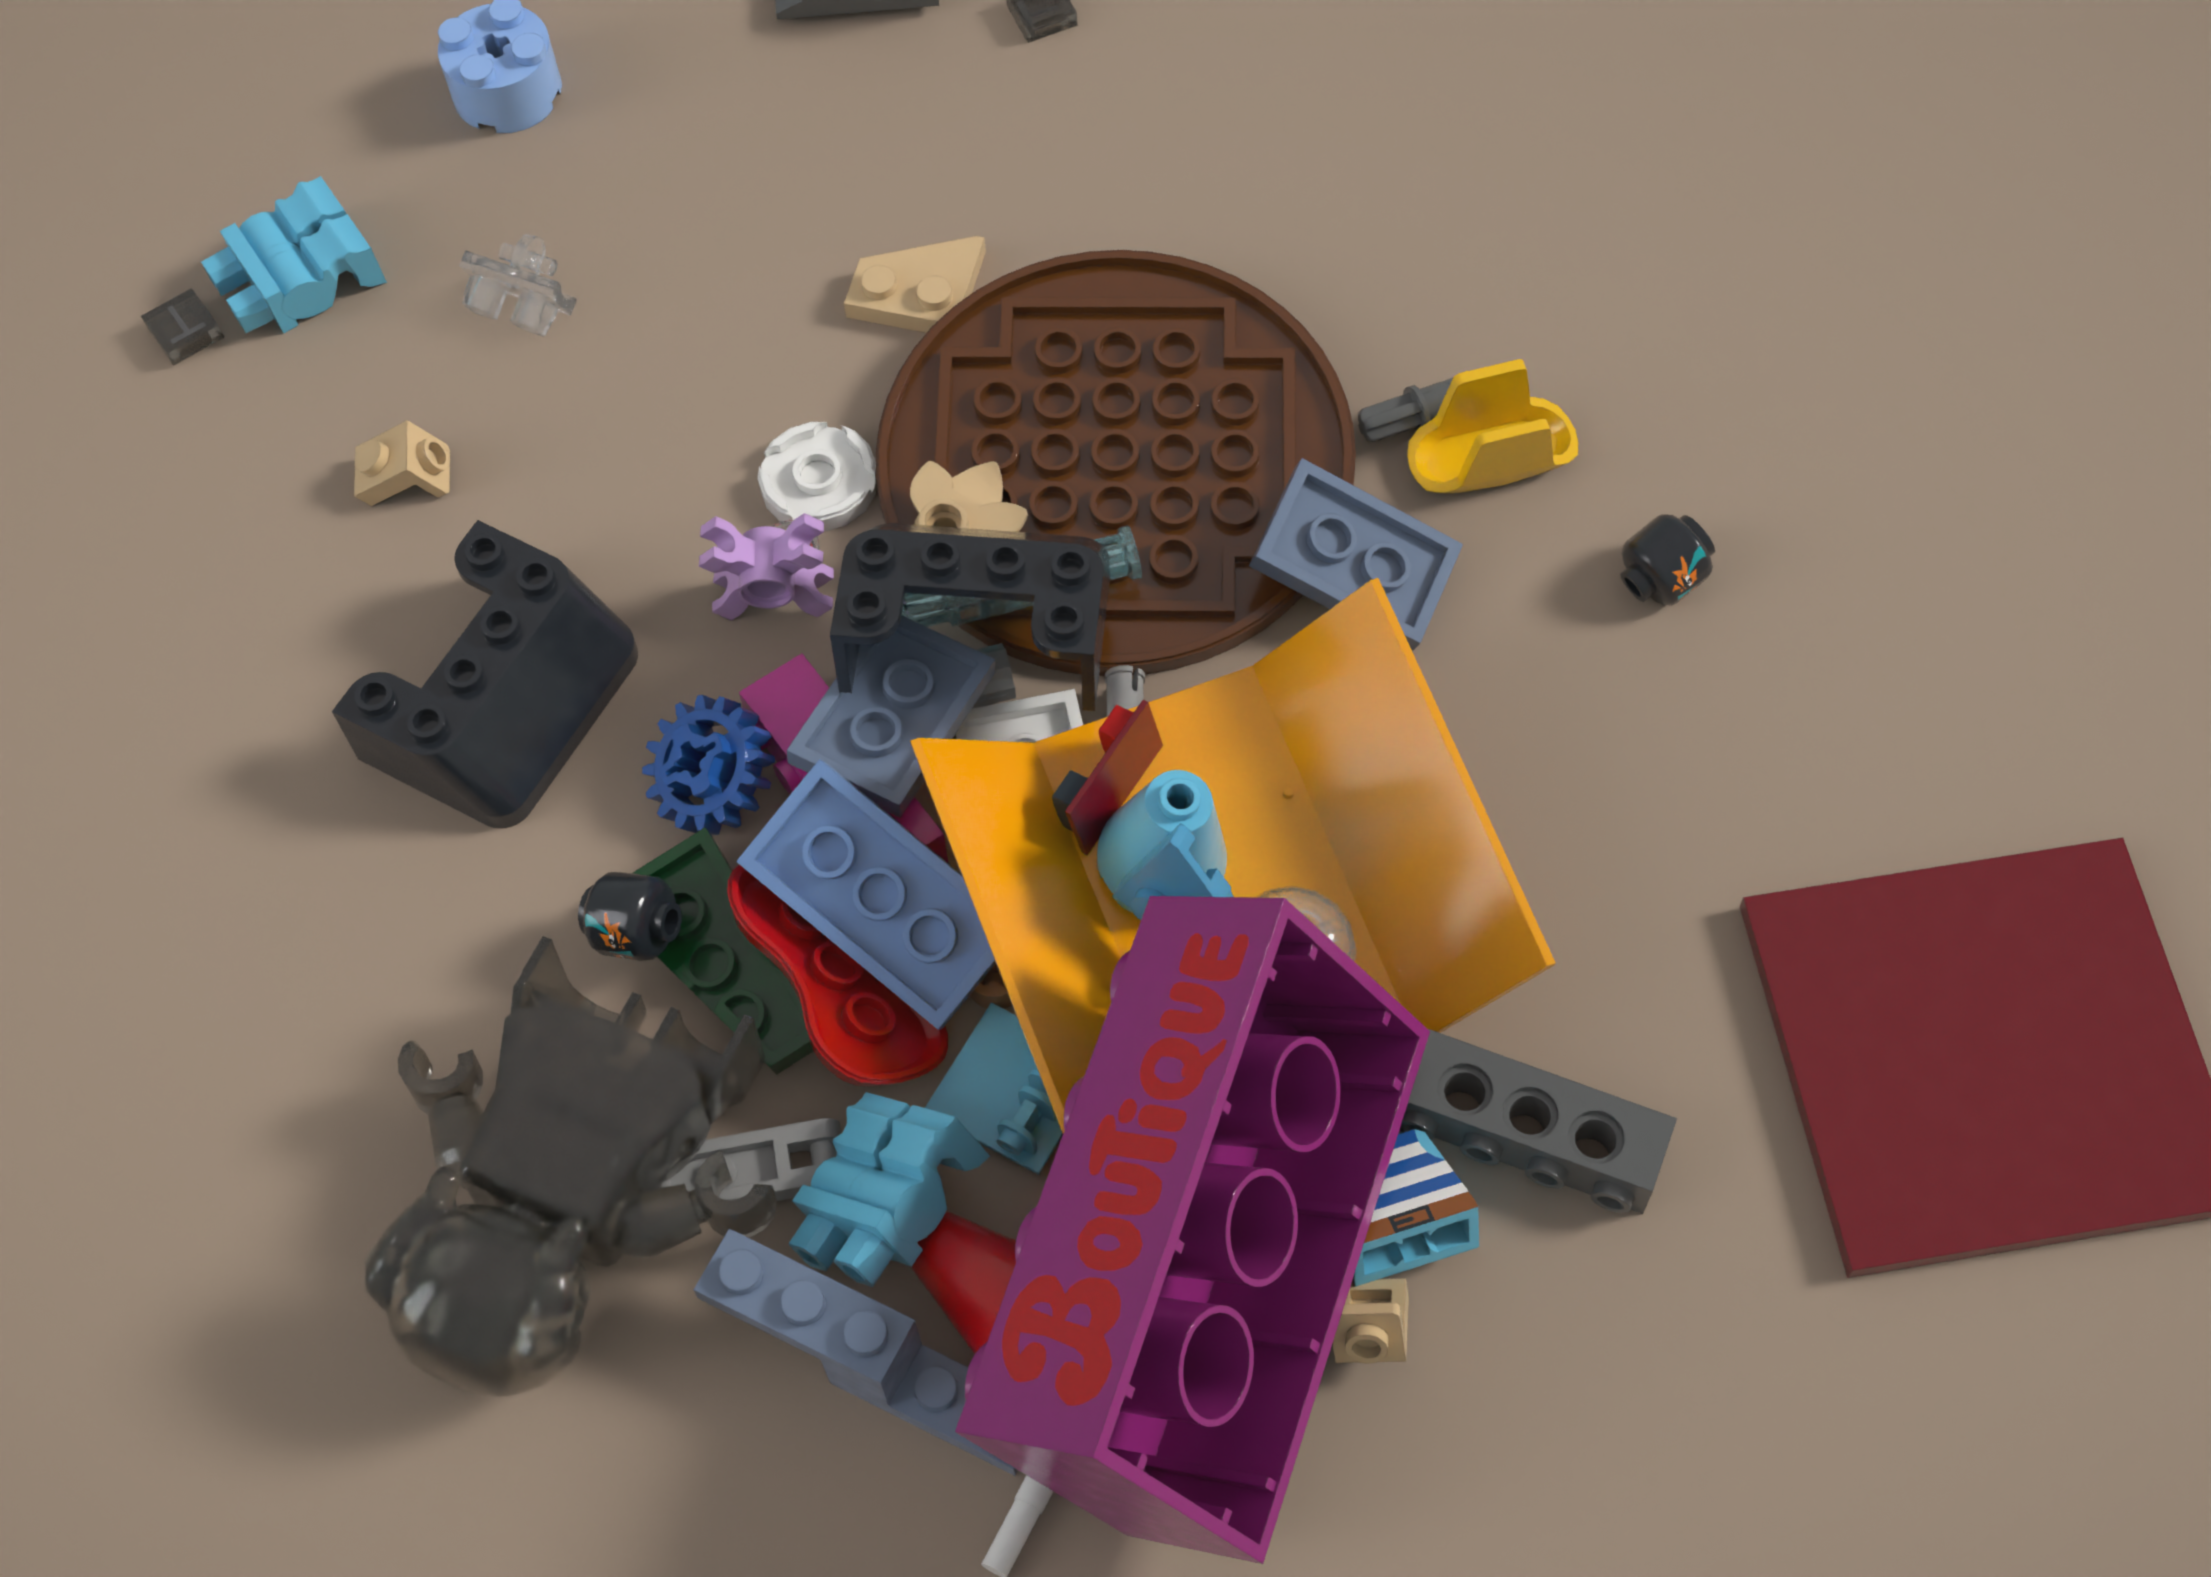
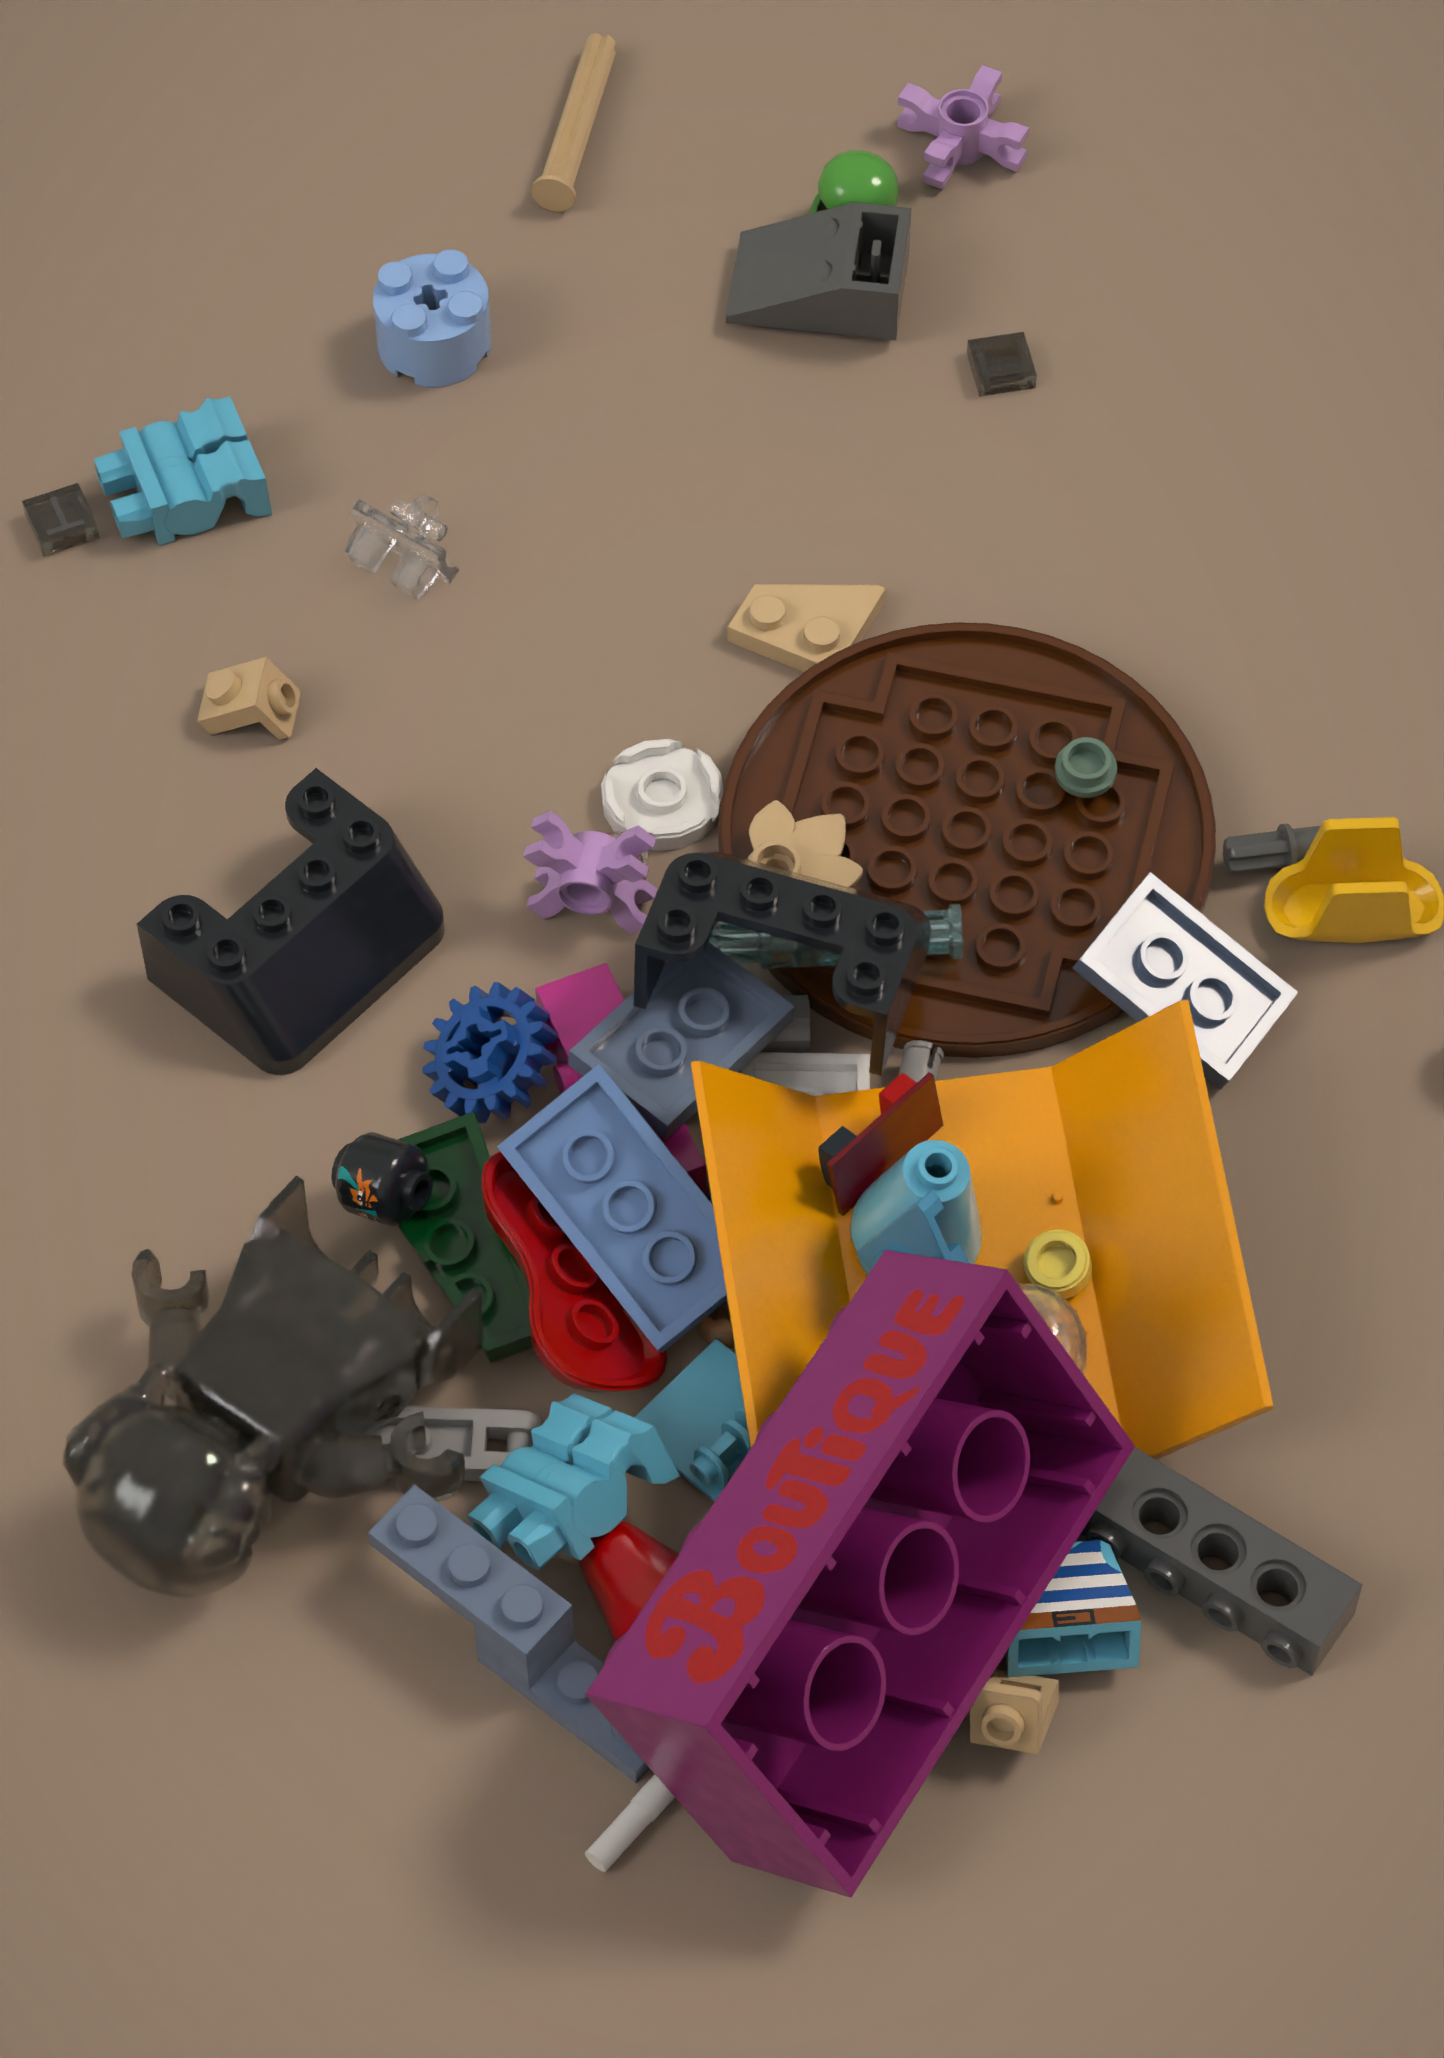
camera: 10 degrees right, 5 degrees down
(1214, 370) = (1086, 768): none -> sand green plate
(1305, 858) = (1058, 1262): none -> light yellow tile

